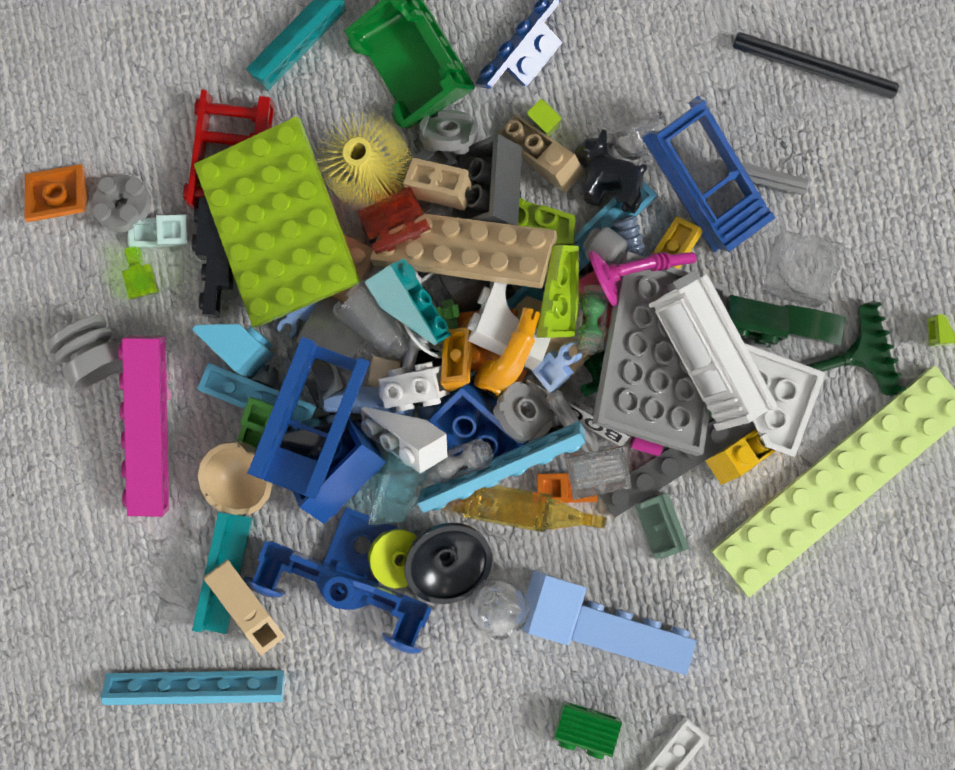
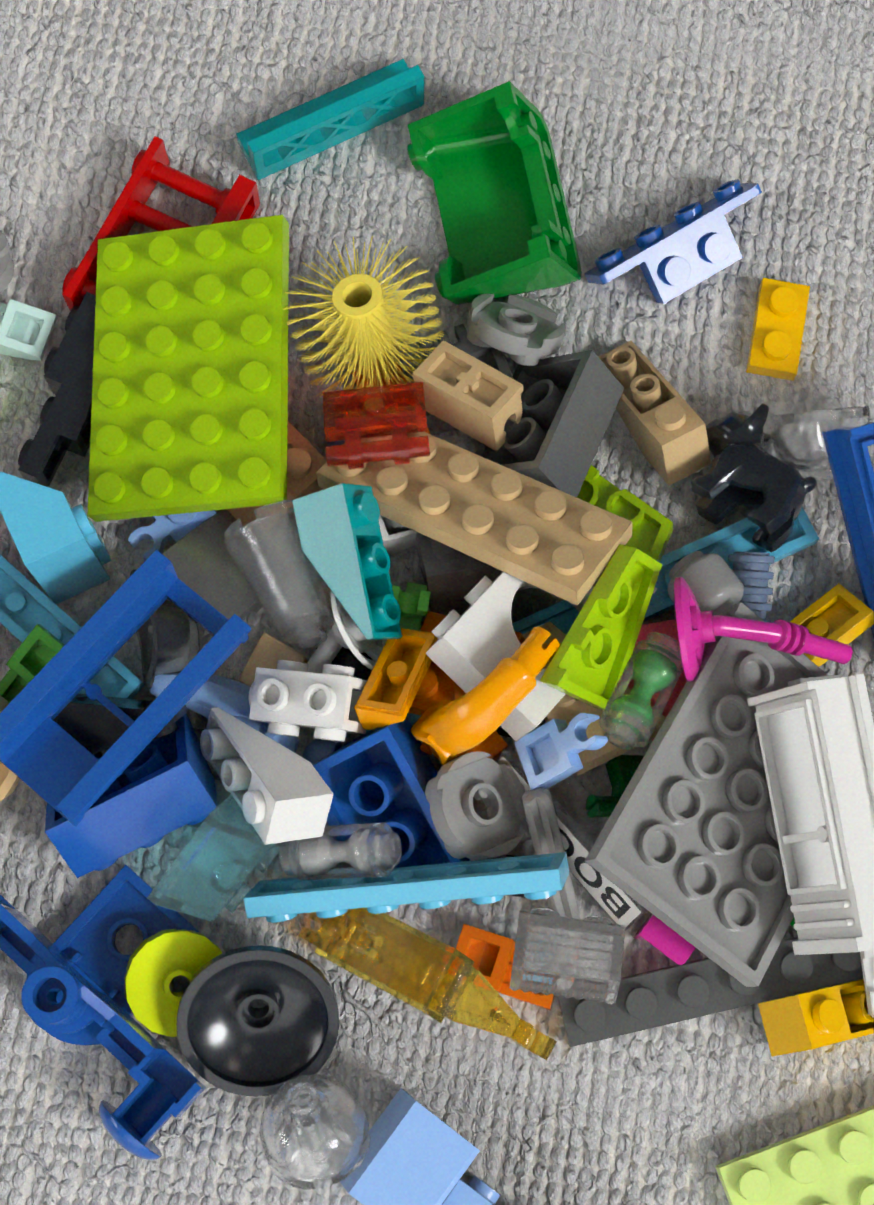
camera: 20 degrees right, 10 degrees down
(267, 378) = (81, 605): dark grey hinge -> none
(545, 117) = (677, 357): lime slope -> none
(595, 78) = (778, 329): none -> yellow plate
(661, 526) = (645, 1091): sand green hinge -> none

